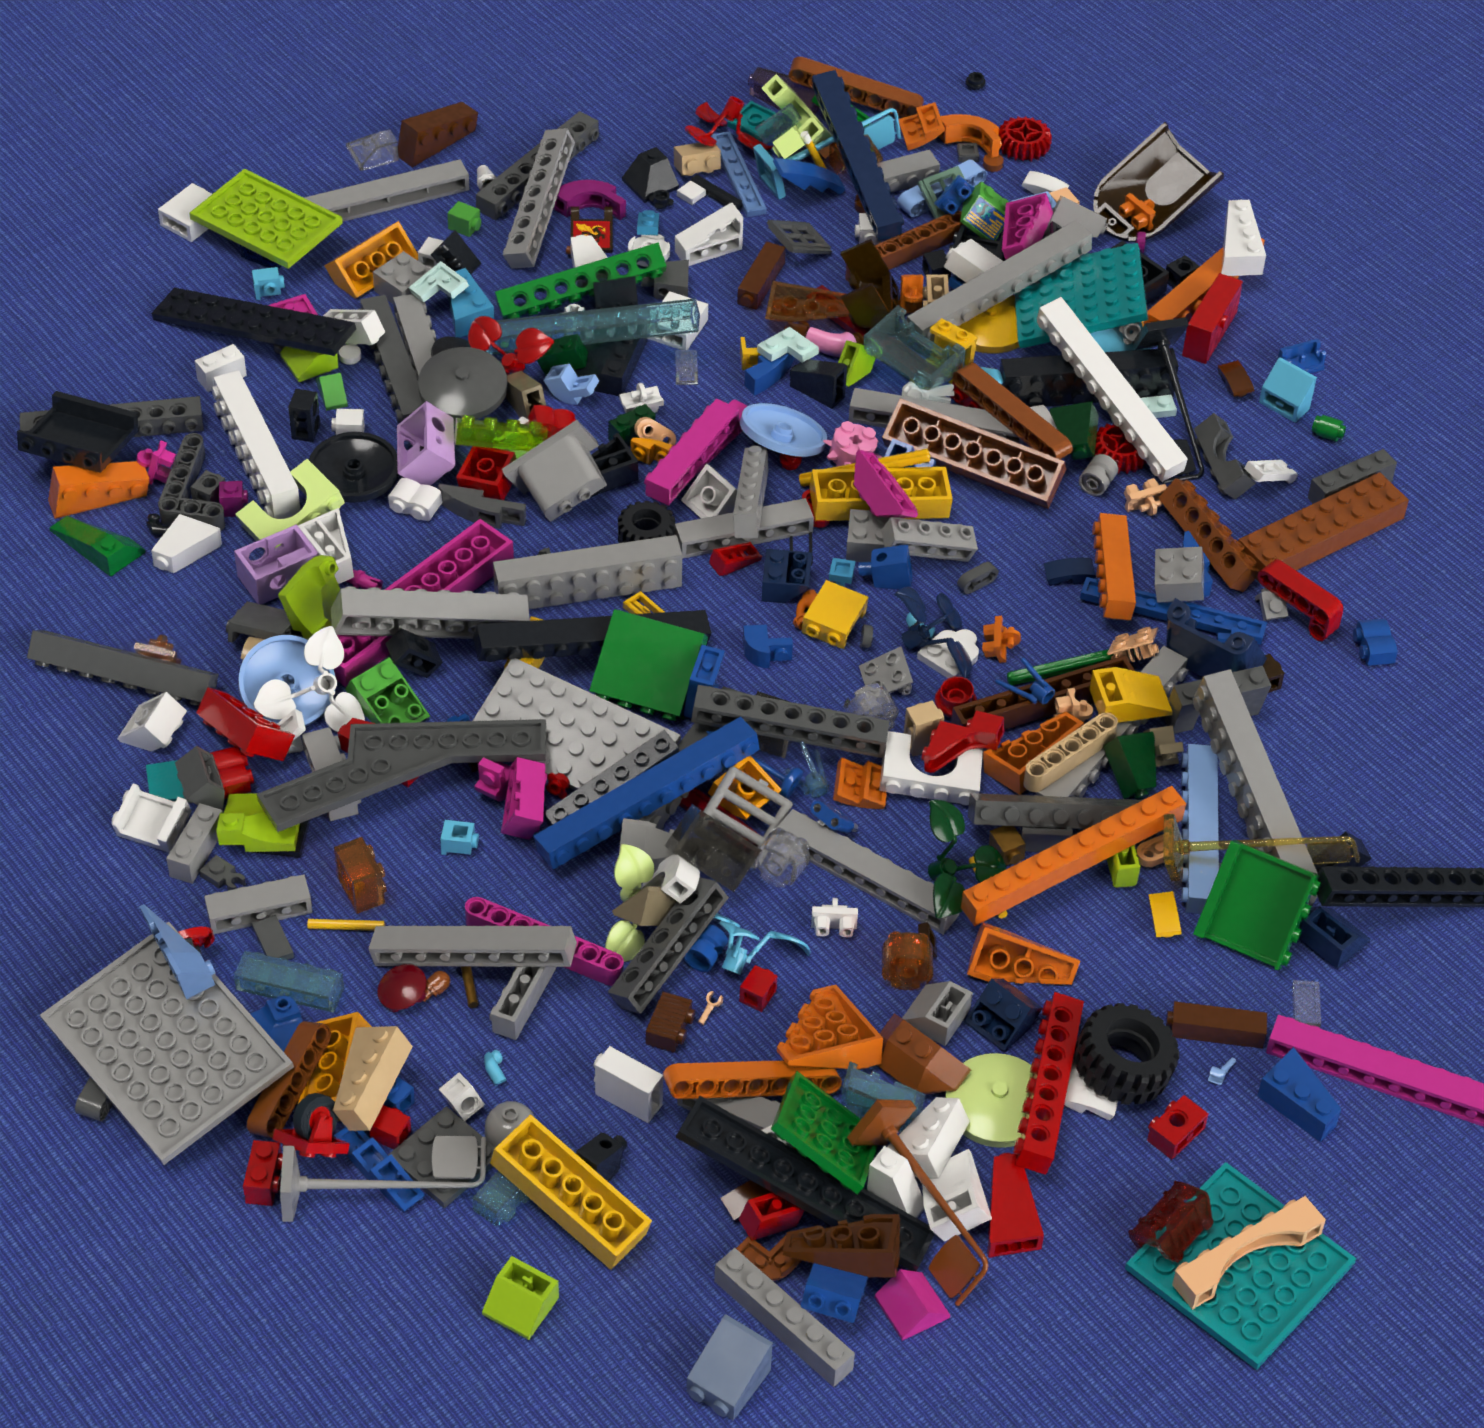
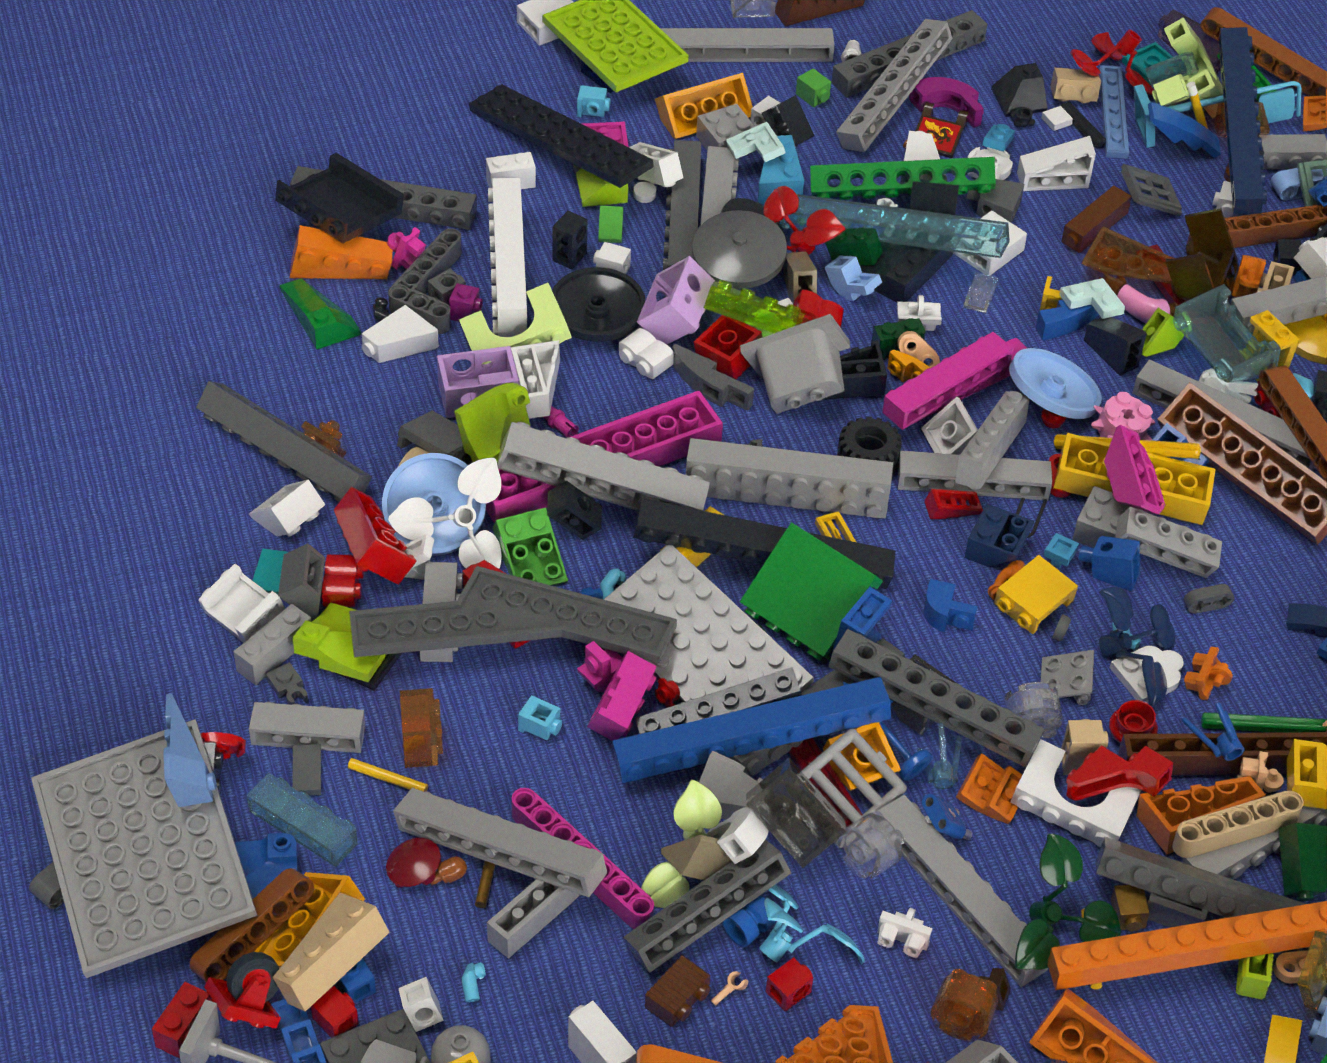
camera: 20 degrees right, 0 degrees up
(469, 702) = (612, 578): none -> medium azure arm

